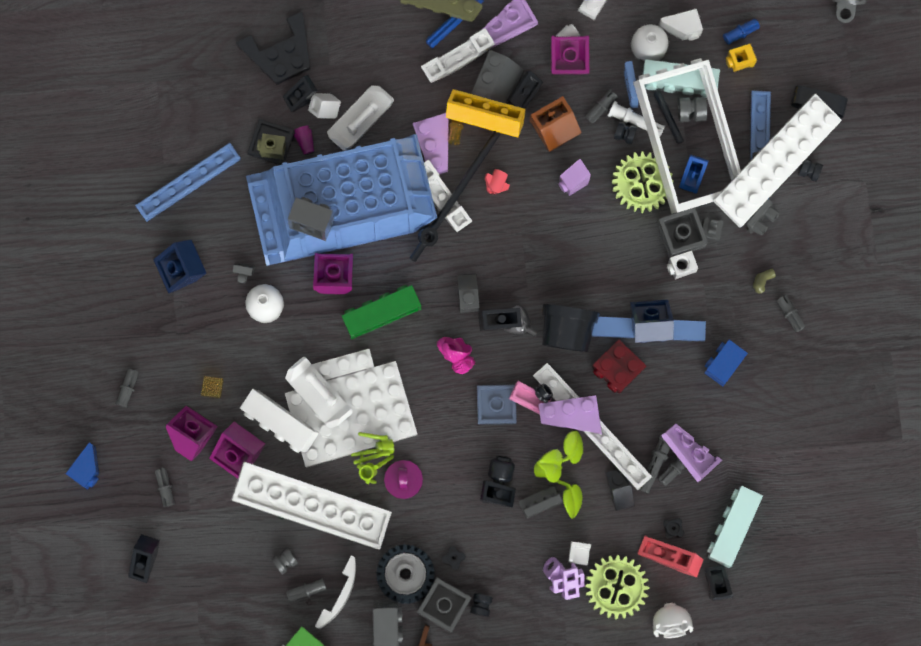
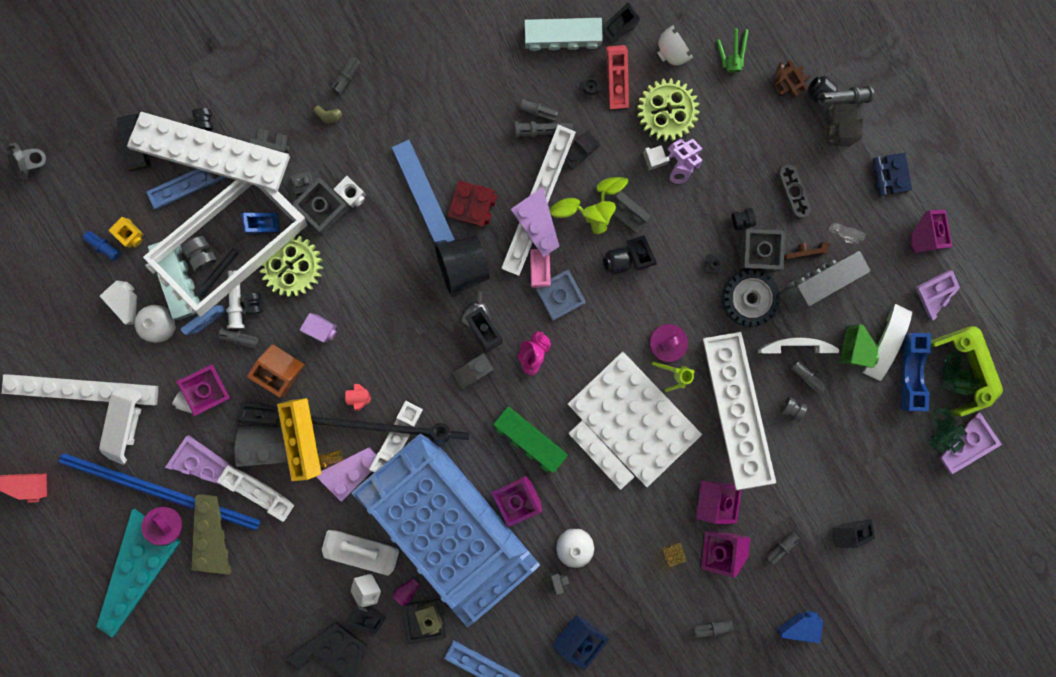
camera: 120 degrees left, 10 degrees up
(279, 420) = (676, 479): white brick -> none
(311, 218) = (486, 548): dark grey brick -> none
(317, 393) = (633, 457): white piece -> none
(383, 448) = (650, 374): lime plant -> none
(543, 392) = (531, 257): black plate -> none
(652, 321) = (416, 193): dark blue slope -> none
(691, 454) = (519, 101): lavender wing -> none
(725, 363) = (421, 110): blue brick -> none

